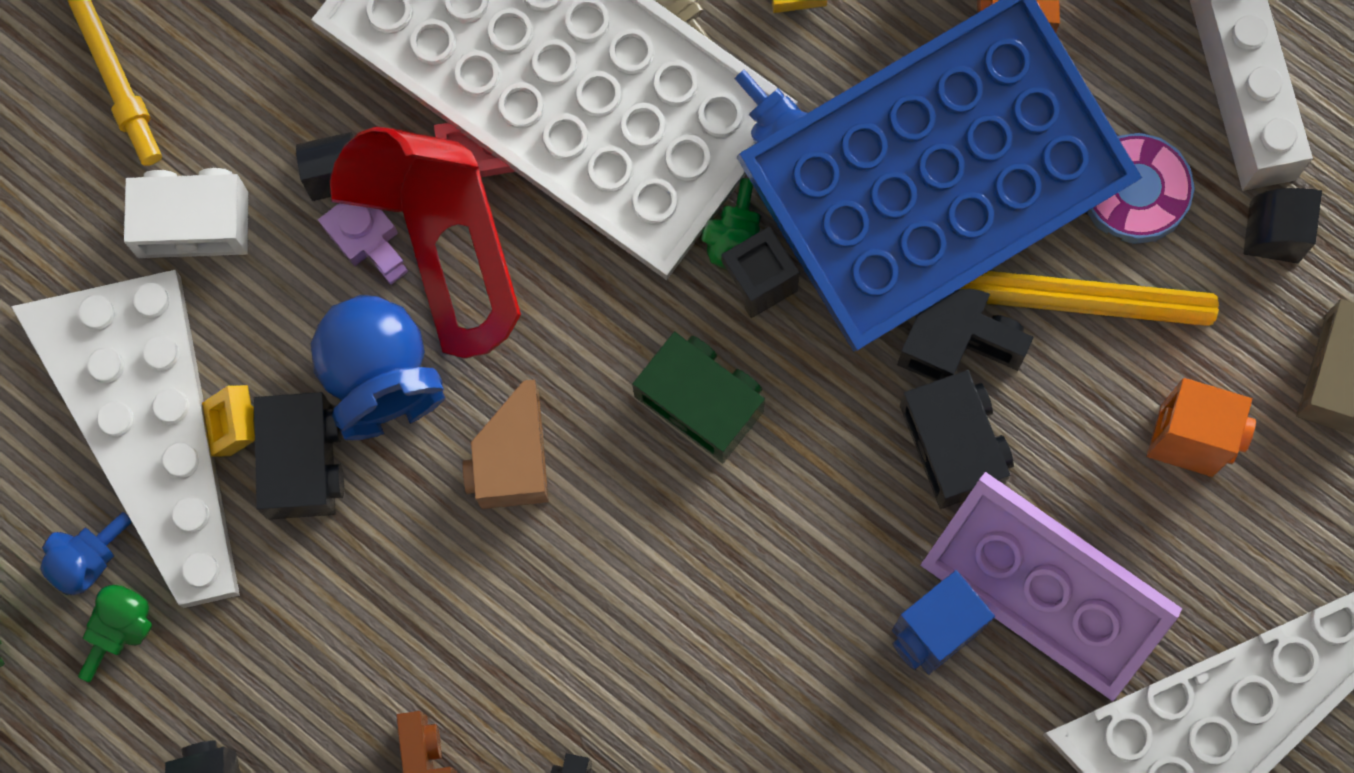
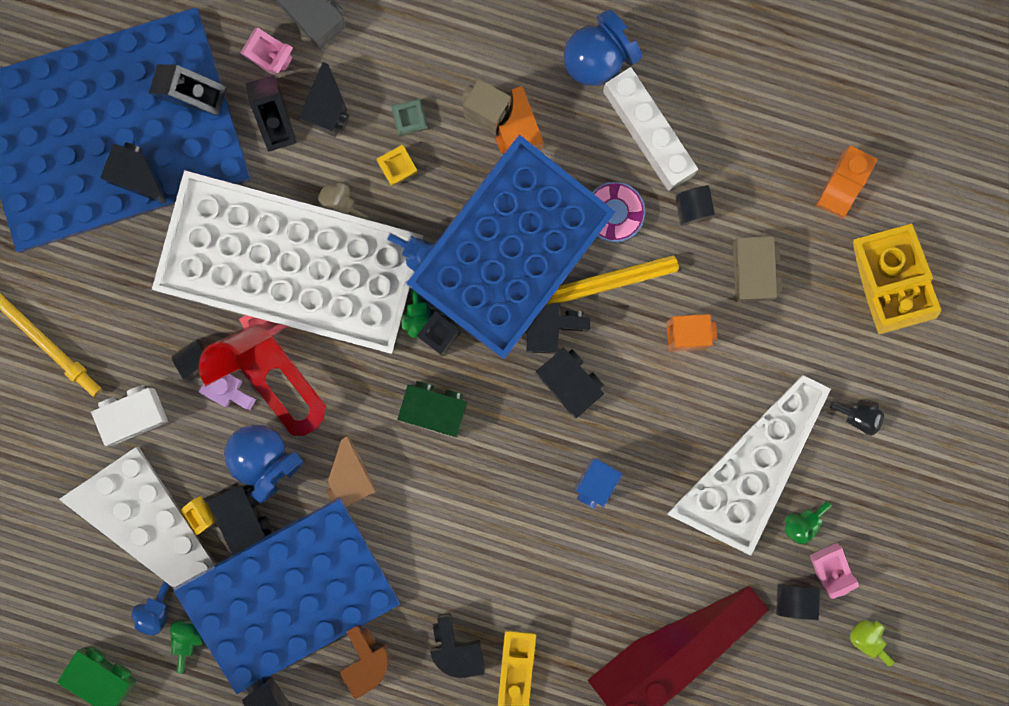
camera: 25 degrees left, 10 degrees up
(321, 613) = (287, 595): none -> blue plate
(1052, 587) = (643, 441): lavender plate -> none

